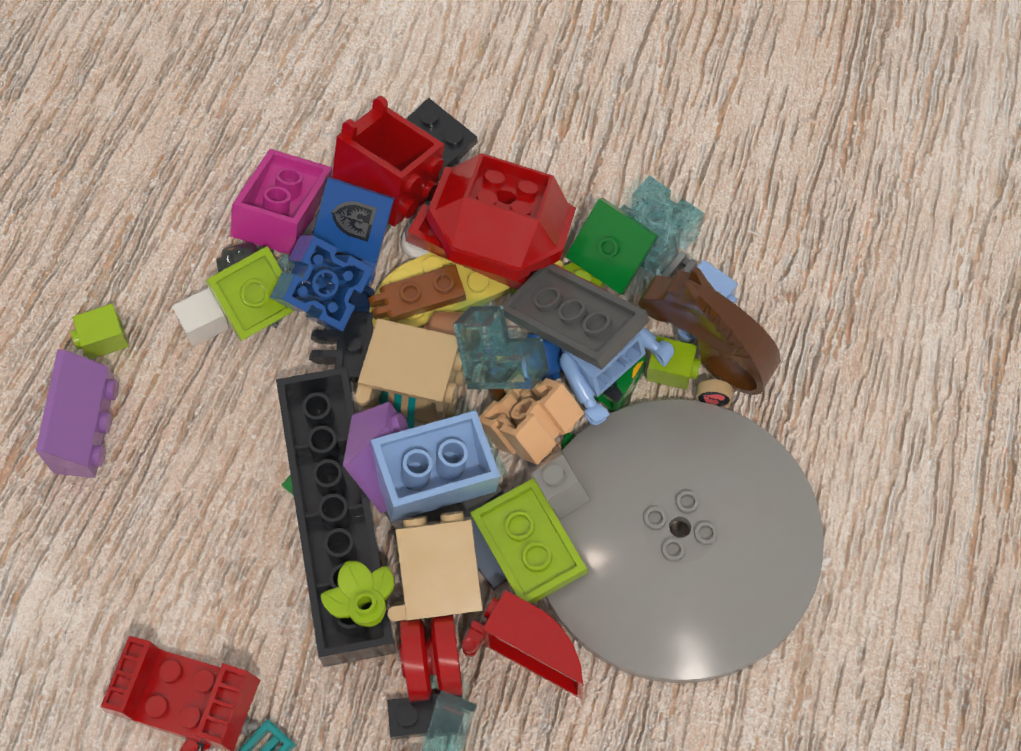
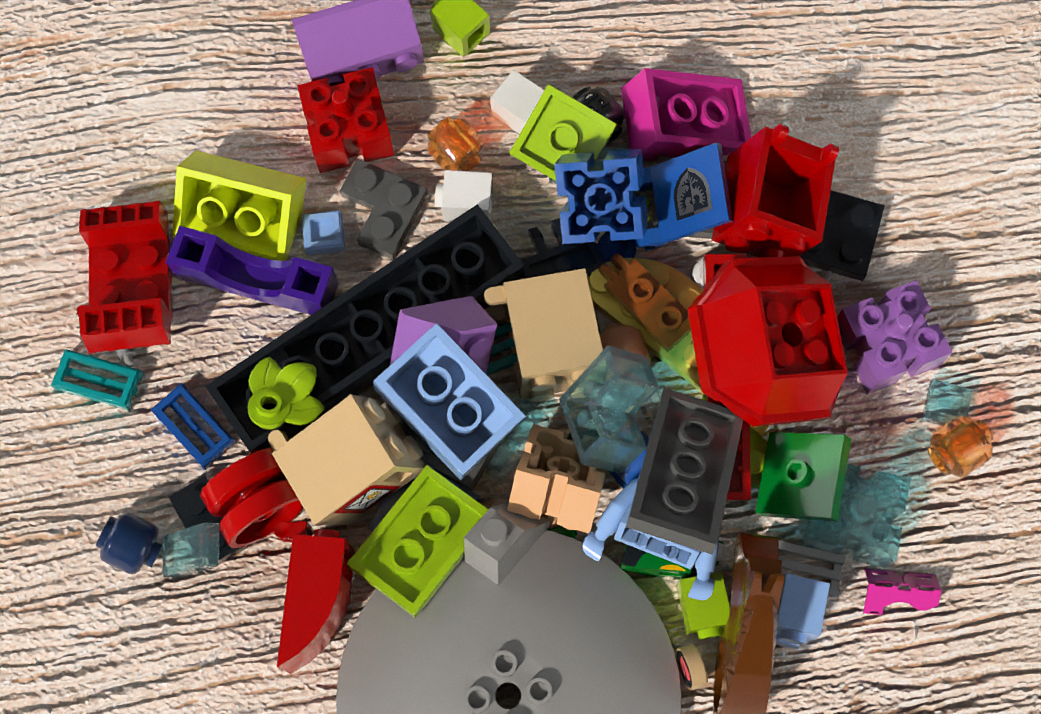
camera: 65 degrees right, 5 degrees up
(137, 457) = (345, 120): none -> red brick
(166, 577) = (239, 203): none -> neon yellow slope
(208, 382) = (455, 145): none -> clear orange head
(210, 613) = (218, 265): none -> dark purple arch
(223, 520) = (323, 232): none -> light blue tile
(226, 453) = (392, 203): none -> dark grey plate
(255, 393) = (462, 192): none -> white brick
(368, 685) = (215, 450): none -> blue tile
(536, 136) = (892, 337): none -> medium lavender brick
(601, 131) = (945, 402): none -> clear light blue tile
(639, 134) = (961, 446): none -> clear orange head
(721, 240) = (881, 596): none -> dark pink piece

